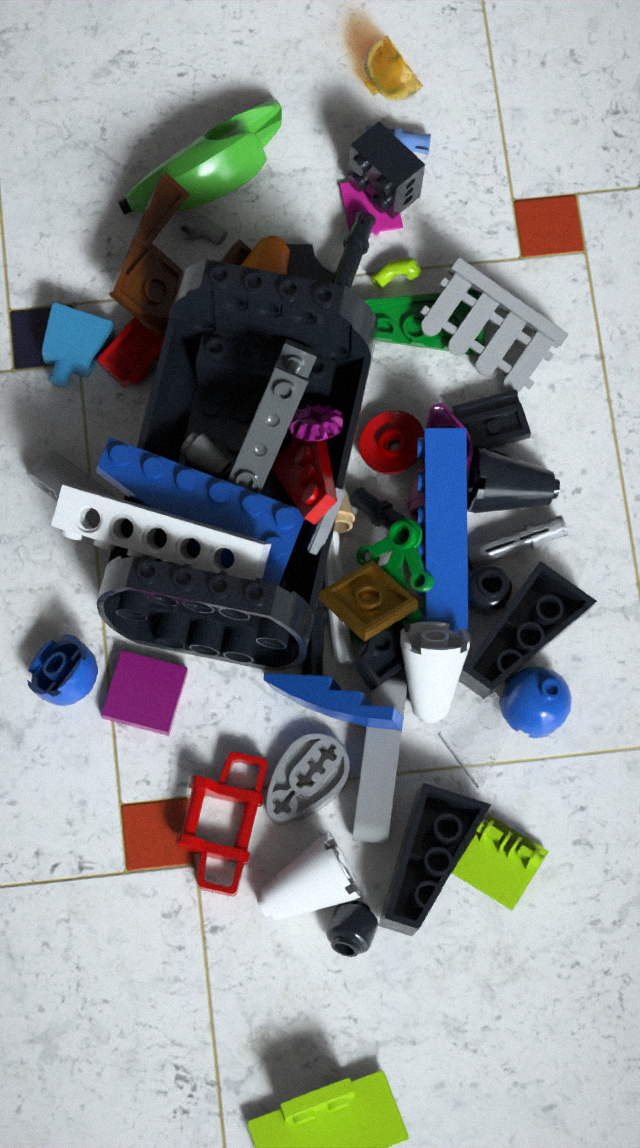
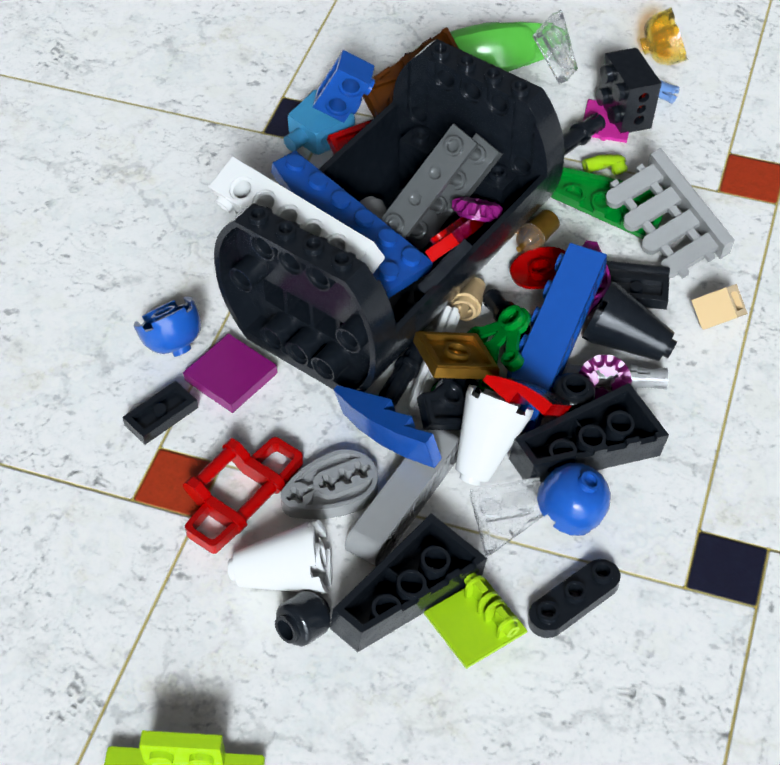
camera: 25 degrees right, 20 degrees down
(98, 306) = (344, 86): none -> blue brick
(104, 770) = (160, 412): none -> black plate
(281, 133) = (556, 47): none -> clear wing
(372, 396) = (537, 231): none -> piece
(467, 620) = (527, 393): none -> red slope
(513, 544) = (608, 366): none -> magenta gear
(570, 813) = (569, 609): none -> black plate
(581, 417) = (719, 306): none -> panel

